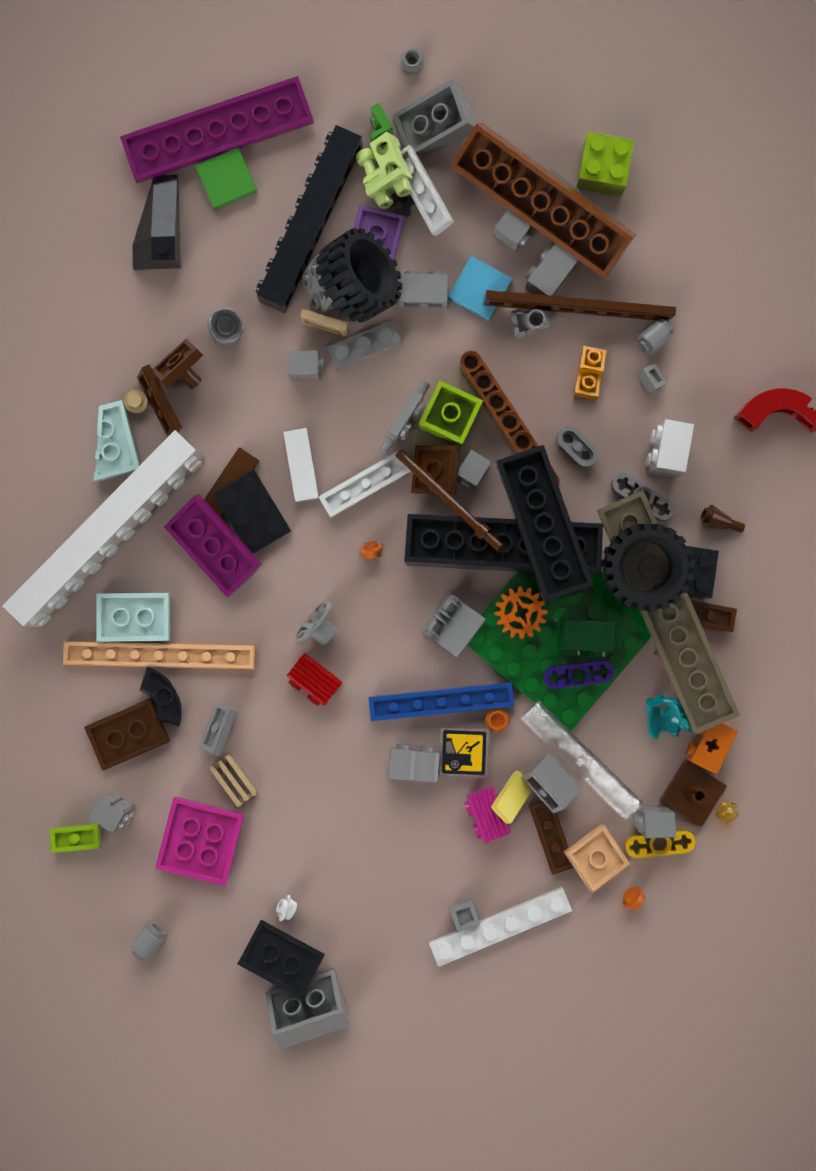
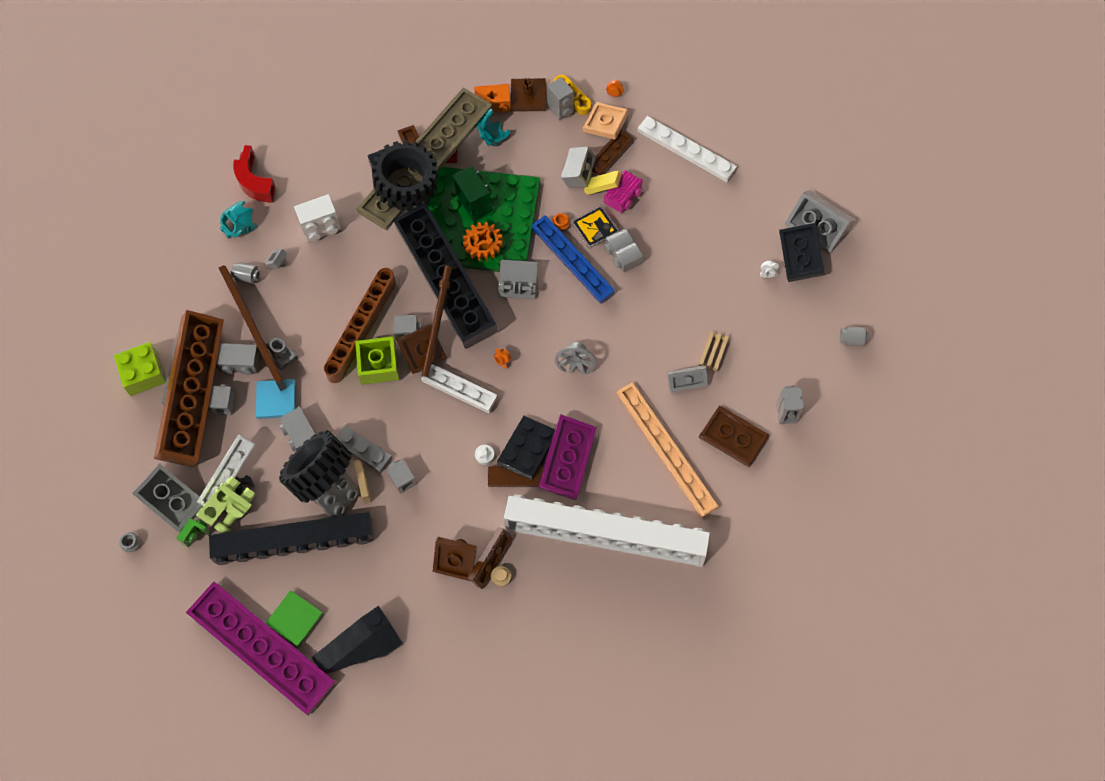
camera: 120 degrees left, 20 degrees down
(75, 838) = (825, 423): lime plate -> none
(115, 445) = (540, 570): light aqua wing -> none
(132, 617) = (653, 480): light aqua plate -> none
(163, 695) = (691, 428): black tile -> none
(200, 841) = (767, 346): dark pink plate -> none
(225, 325) = (406, 545): light grey hair -> none
(275, 465) = (484, 454): none -> white tile
(301, 465) = (473, 438): white tile -> none
(313, 679) = (612, 339): red brick -> none
(383, 224) = (271, 492): medium lavender tile -> none
(412, 410) = (397, 384): light grey plate -> none
(464, 915) = (694, 170): light grey plate -> none
(544, 524) = (416, 247): black brick -> none
(579, 445) = (350, 278): light grey plate -> none
(582, 760) = (551, 161): clear plate -> none
(589, 373) = (290, 300): light orange slope -> none
(596, 678) = (500, 197): dark purple beam -> none
(631, 481) = (363, 229): light grey beam -> none
(715, 518) = (346, 174): reddish brown cone -> none
(726, 812) = (527, 70): clear yellow plate -> none
(729, 364) = (240, 217): none -> teal helmet

